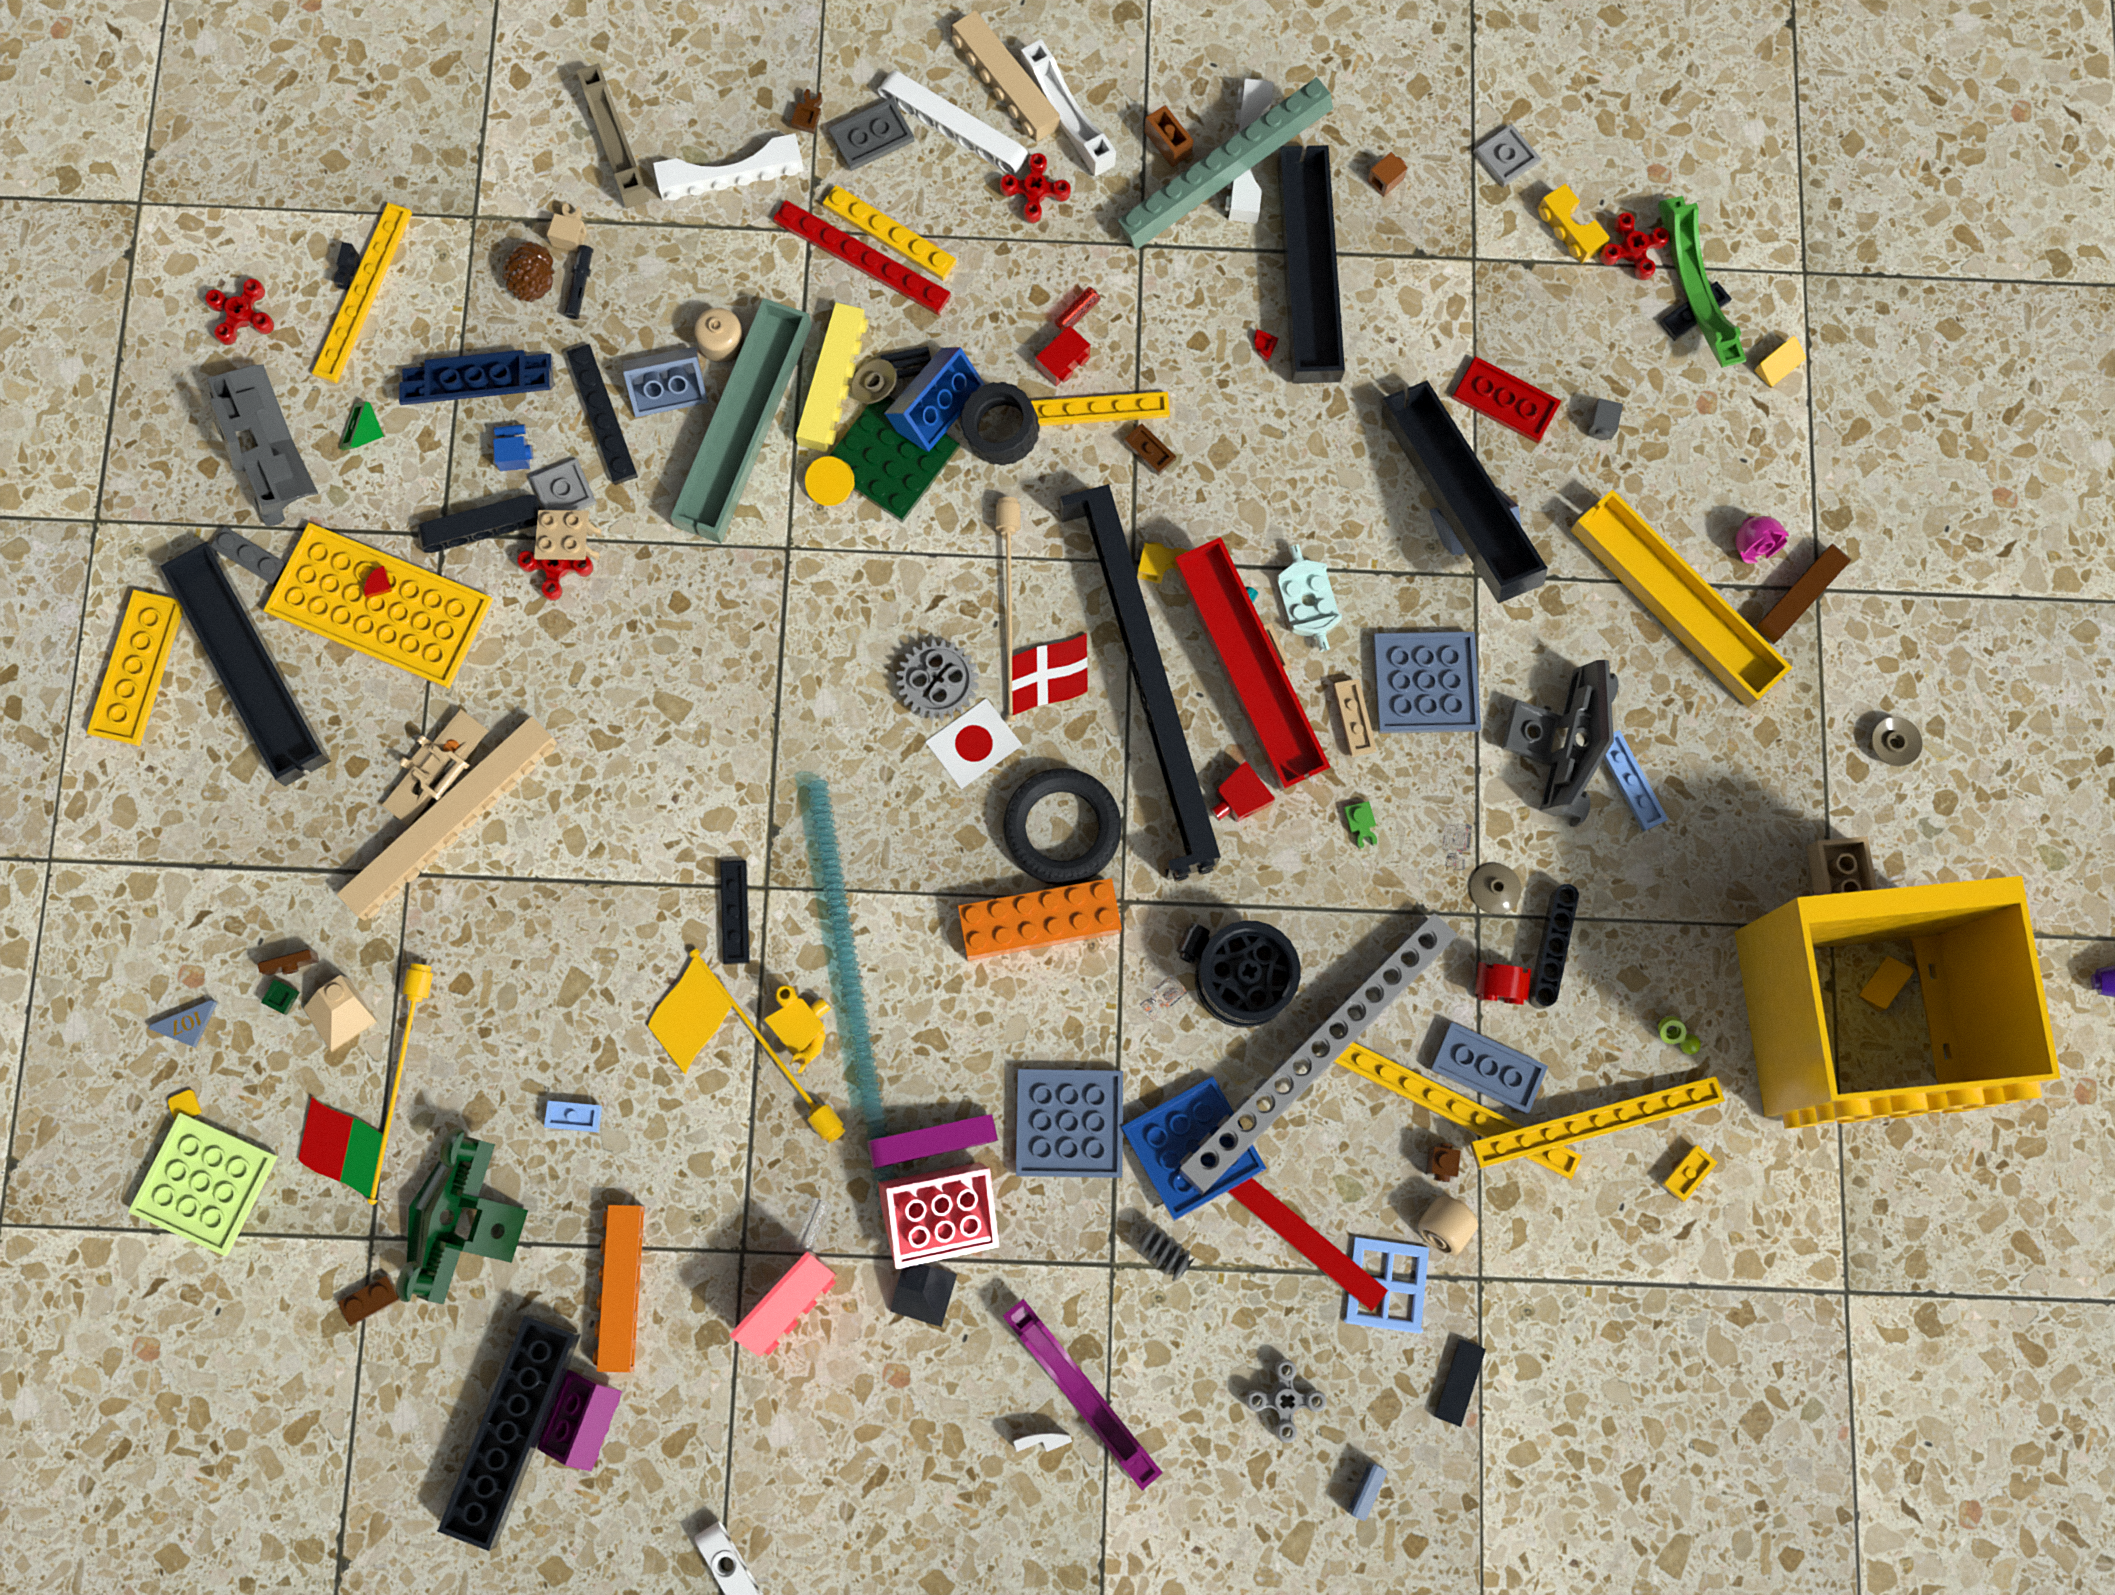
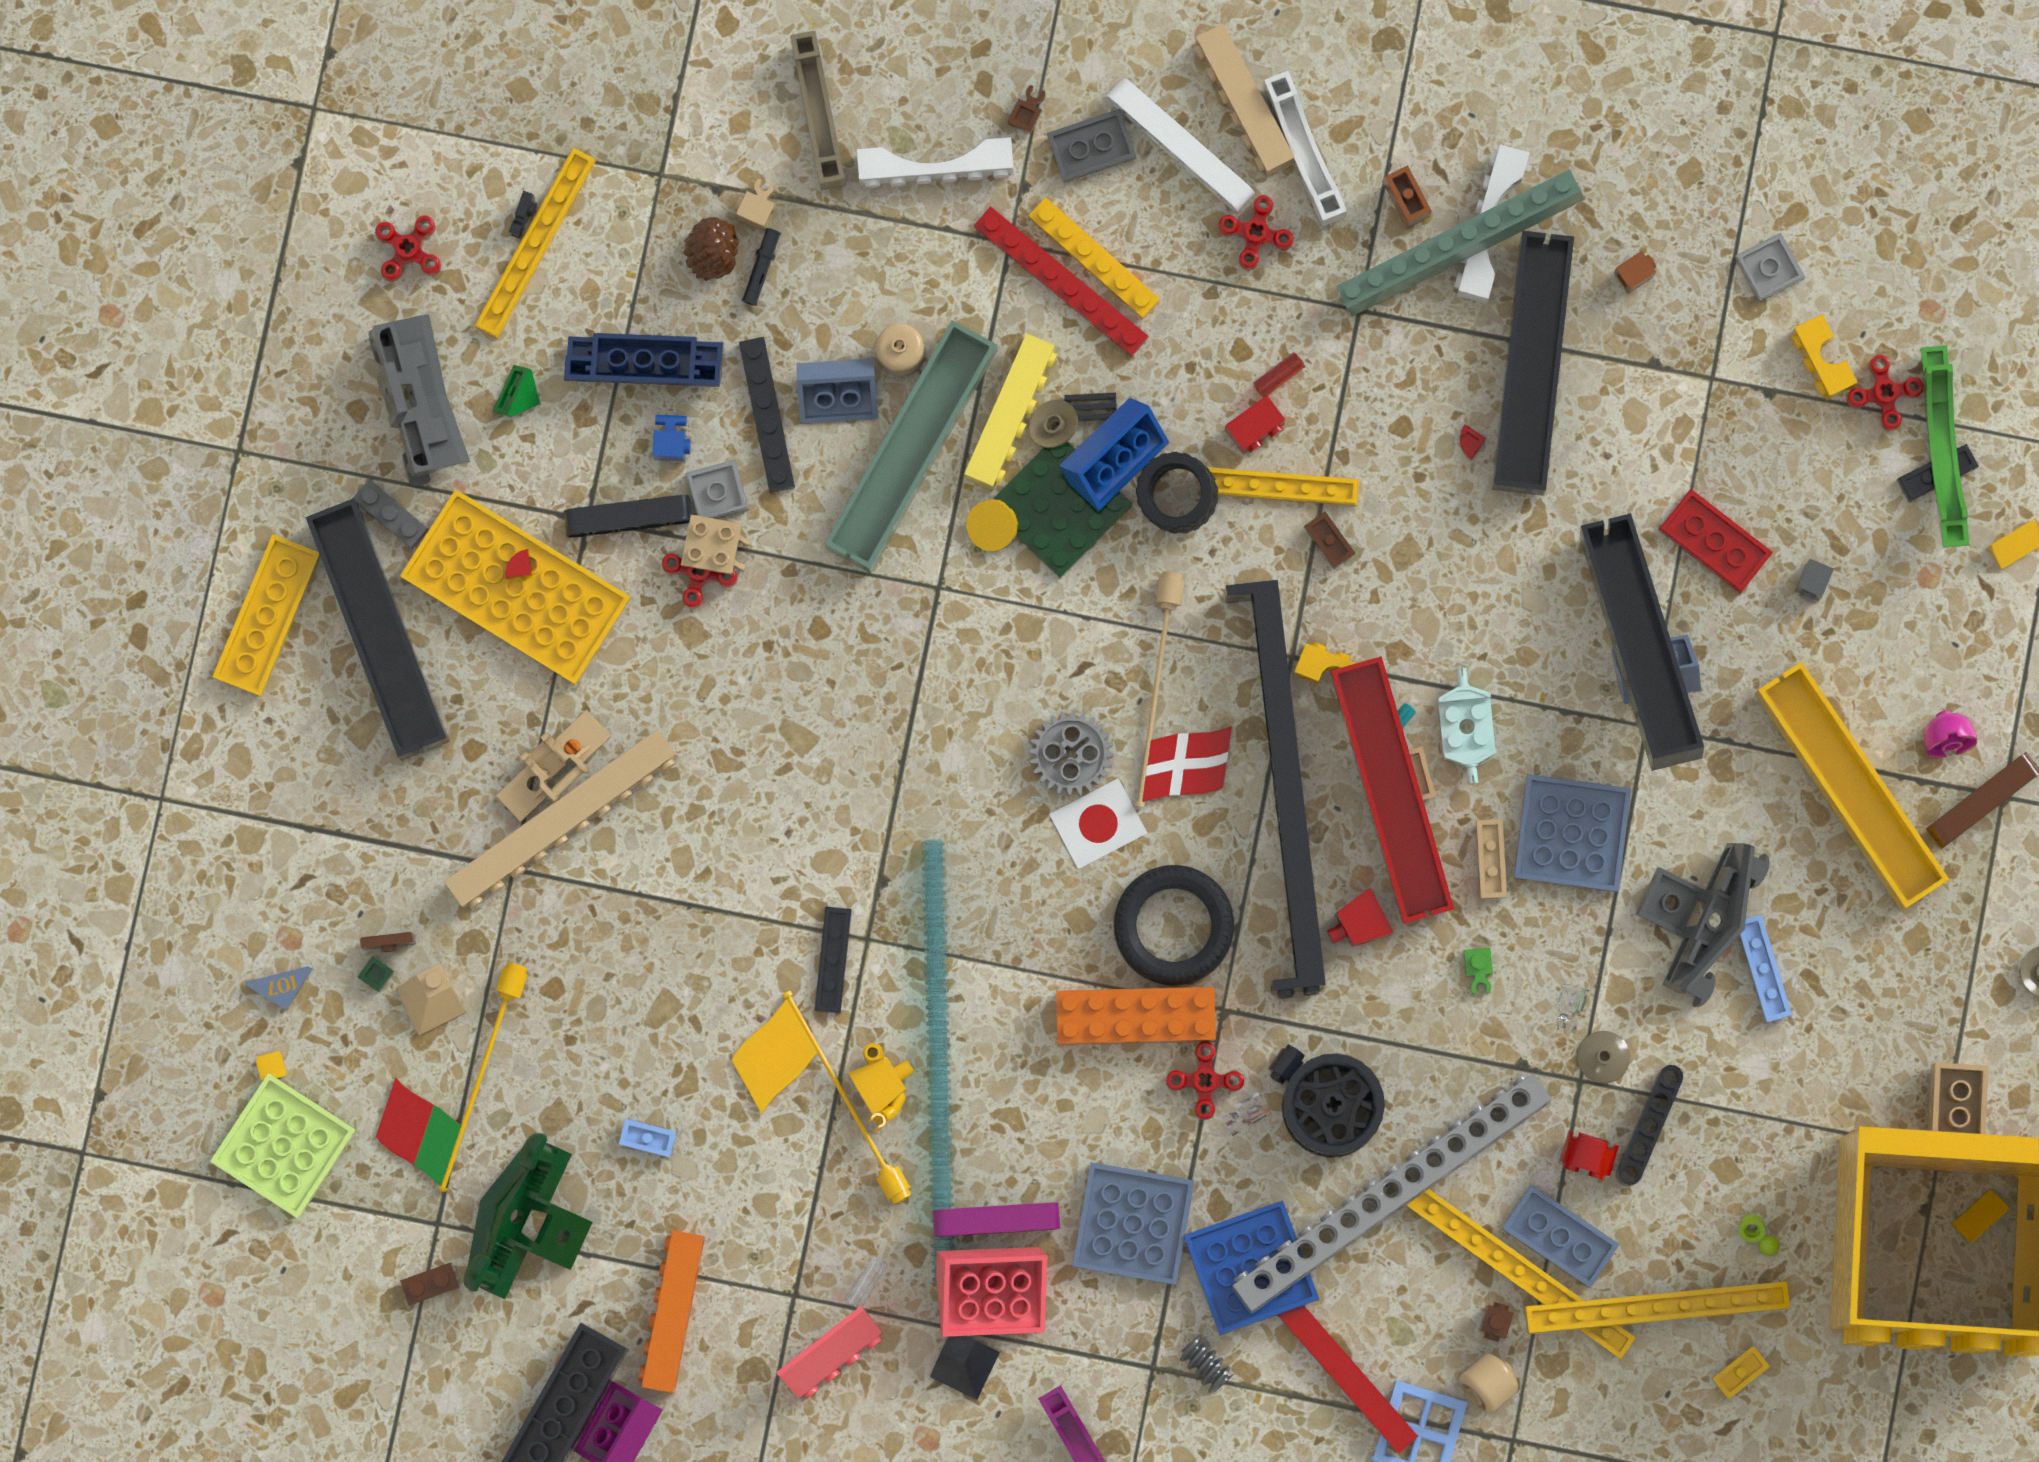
camera: 20 degrees right, 5 degrees up
(1128, 970) = (1193, 1080): none -> red gear

